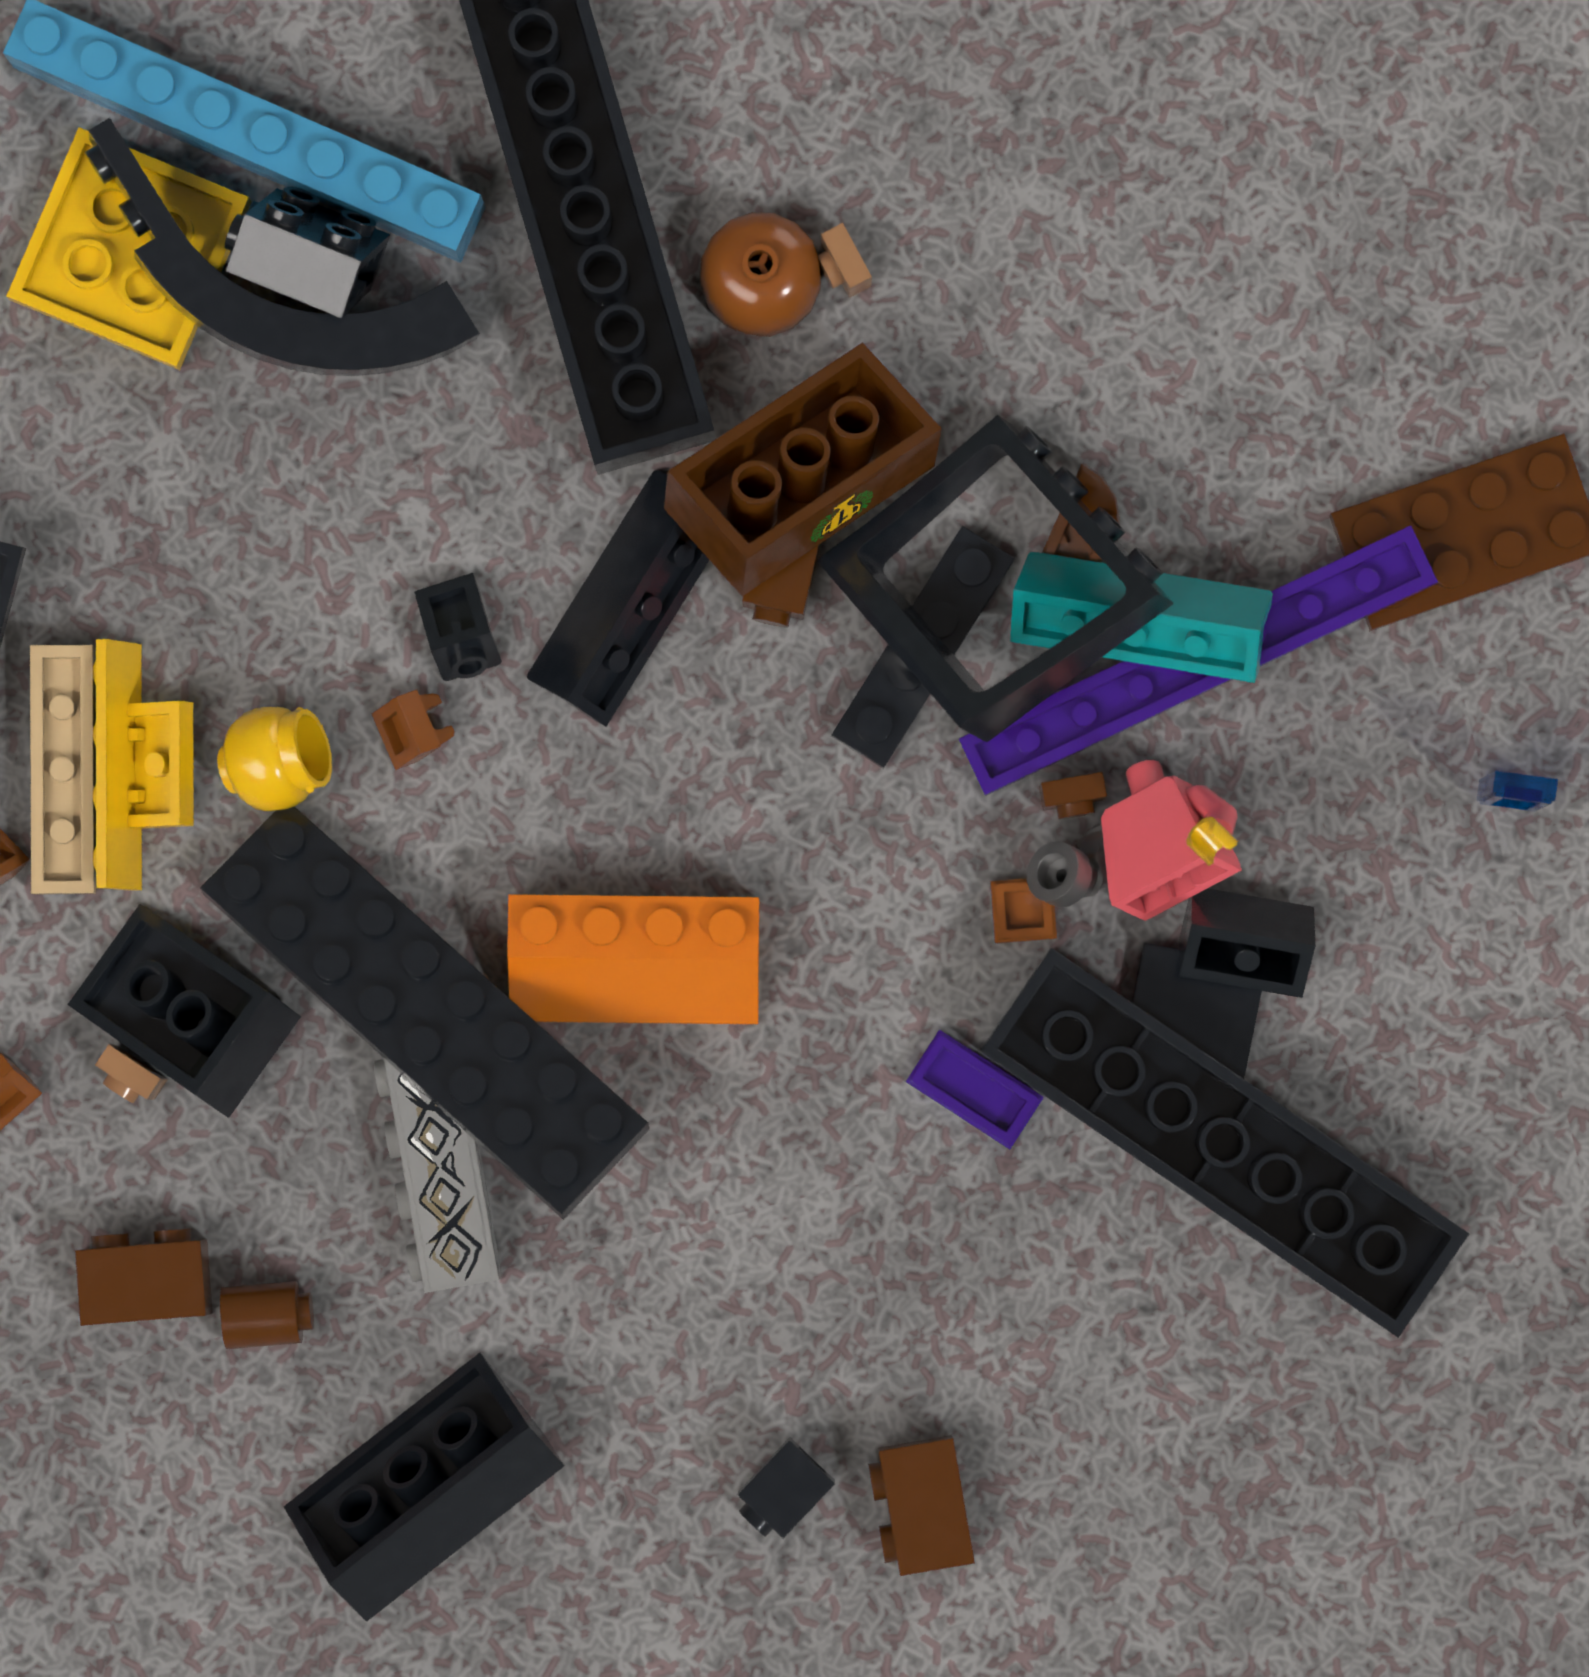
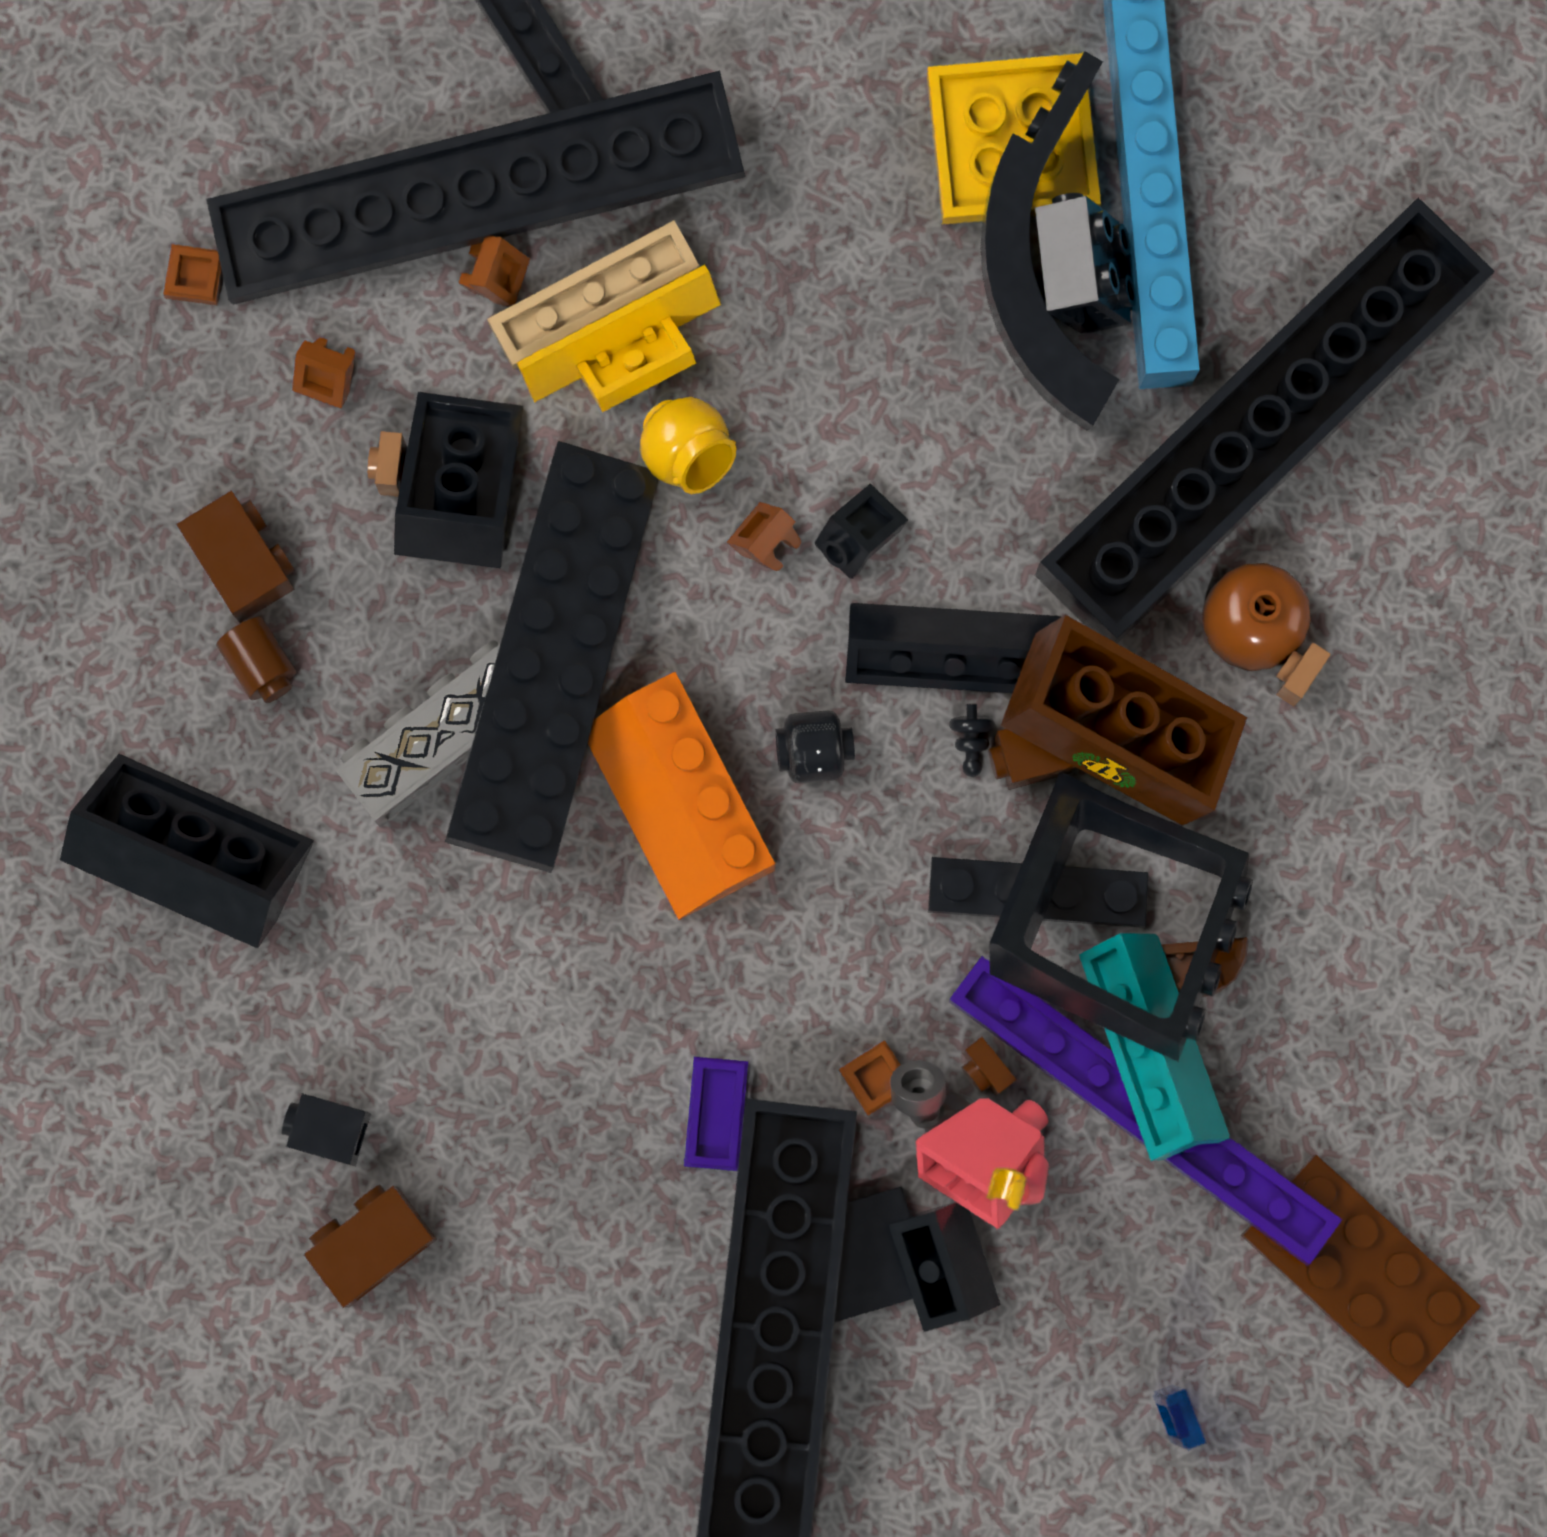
camera: 55 degrees right, 5 degrees down
(657, 794) = (813, 746): none -> black head
(736, 631) = (972, 743): none -> black hair

